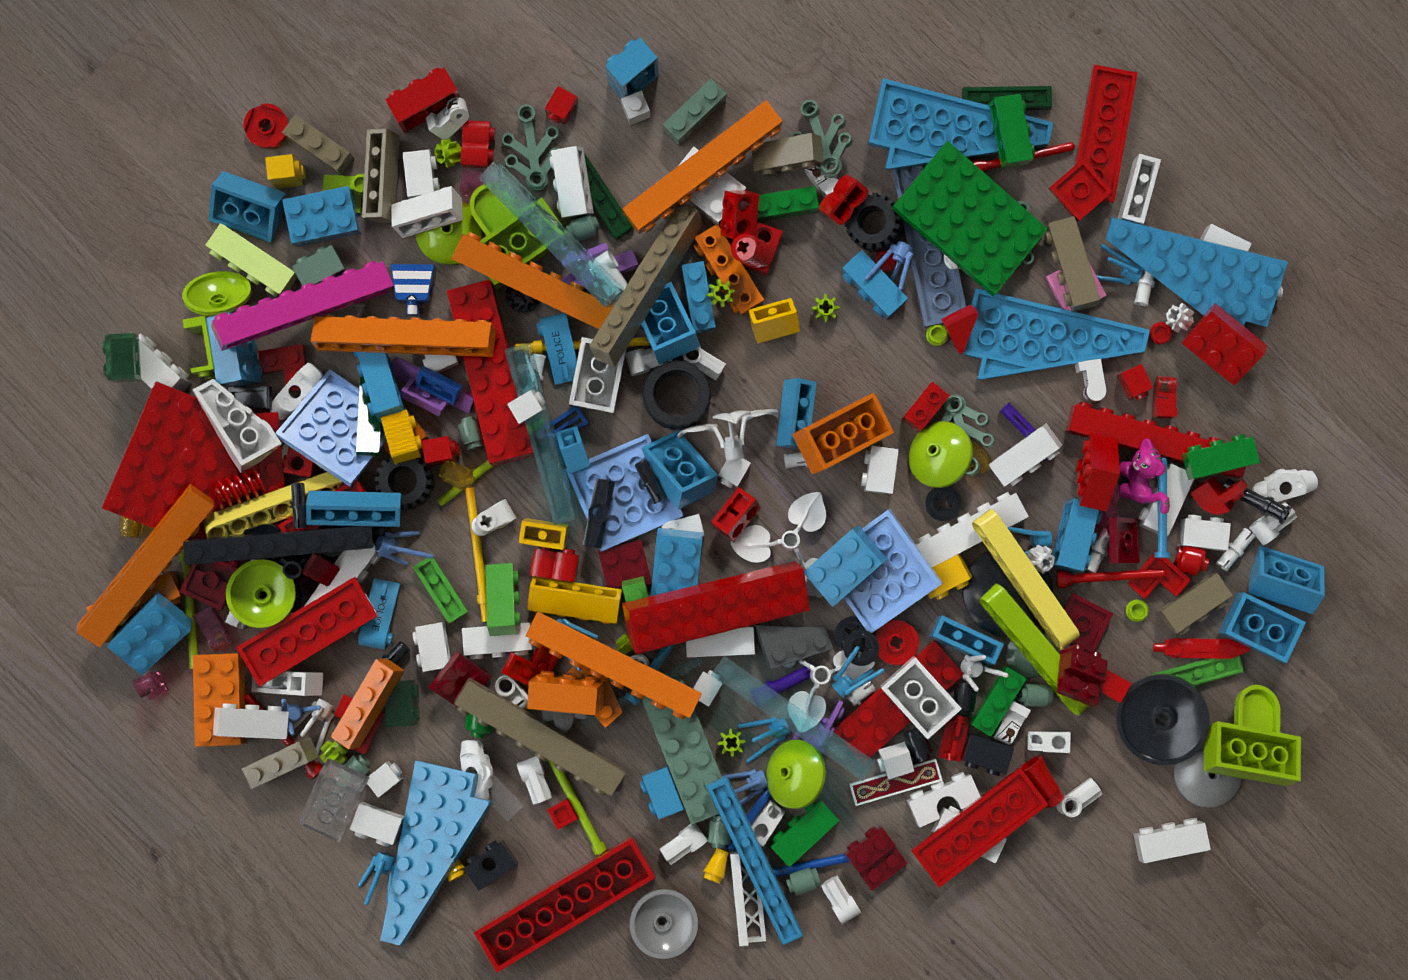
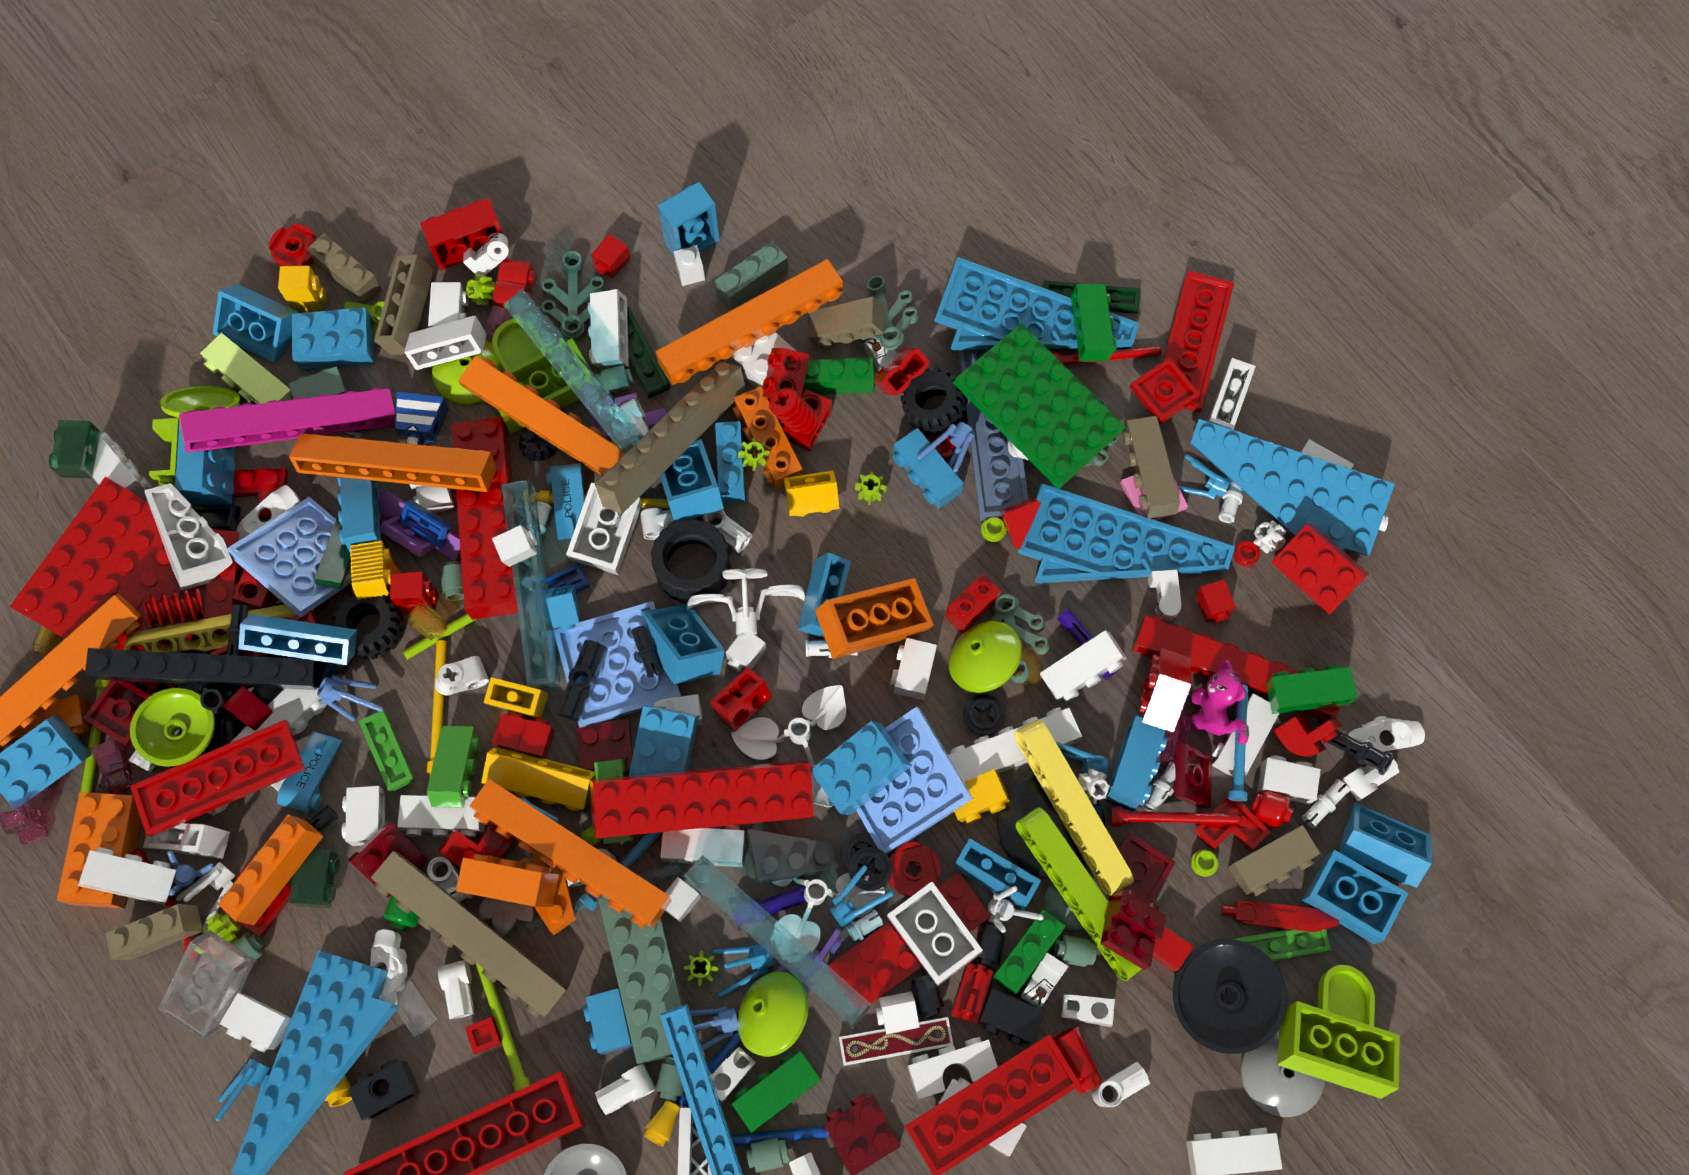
camera: 10 degrees right, 15 degrees down
(384, 778) = (276, 967): white brick -> none
(1164, 398) = (1248, 623): red leg -> none

